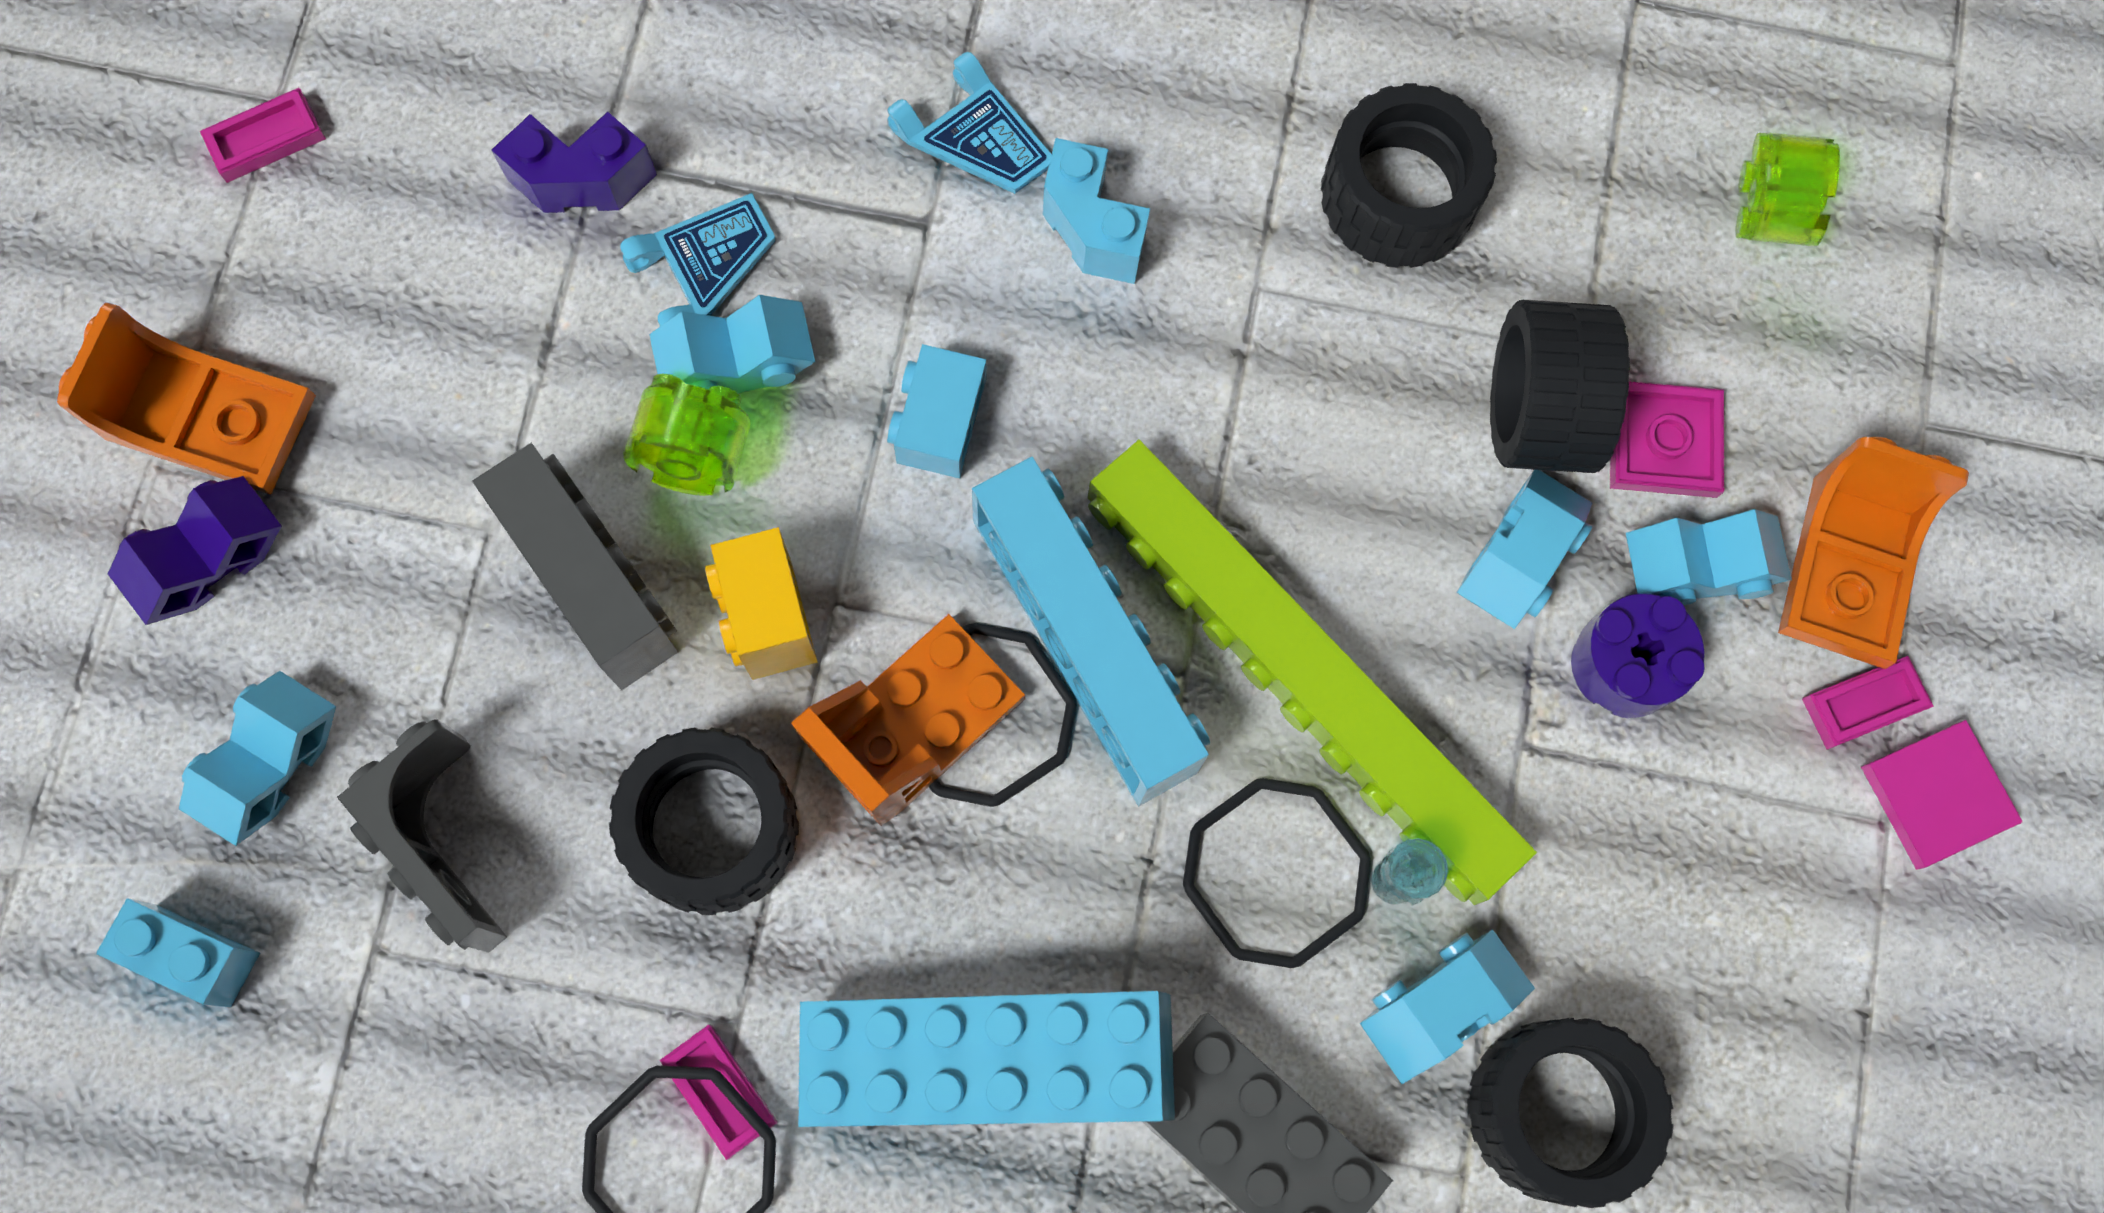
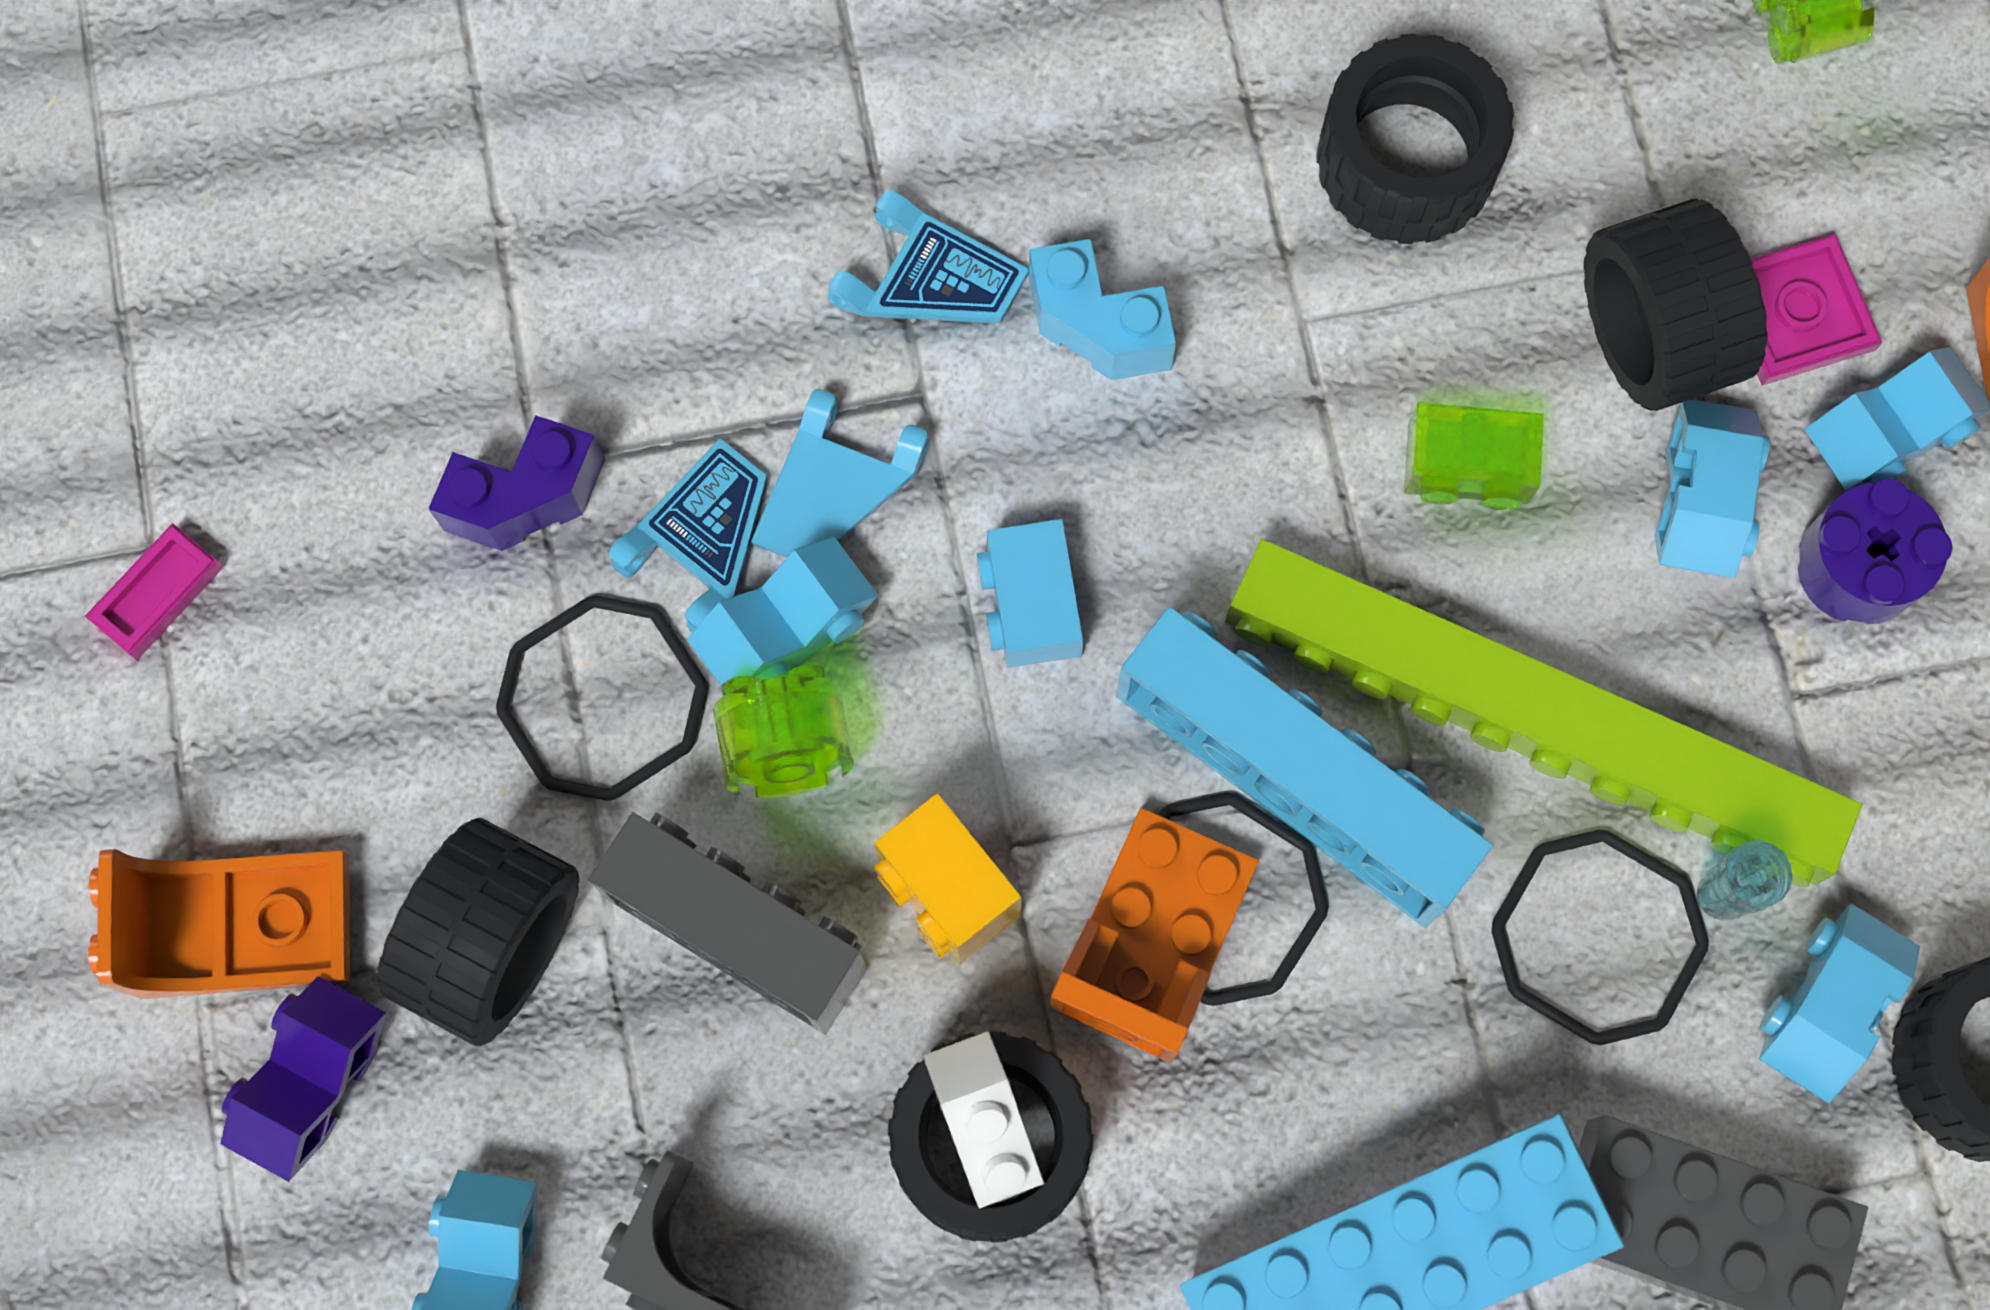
camera: 15 degrees left, 0 degrees up
(372, 488) = (477, 931): none -> black tyre
(557, 285) = (650, 769): none -> black piece
(694, 799) = (983, 1119): none -> white brick
(821, 265) = (830, 487): none -> medium azure flag
(1344, 445) = (1473, 455): none -> clear neon green brick

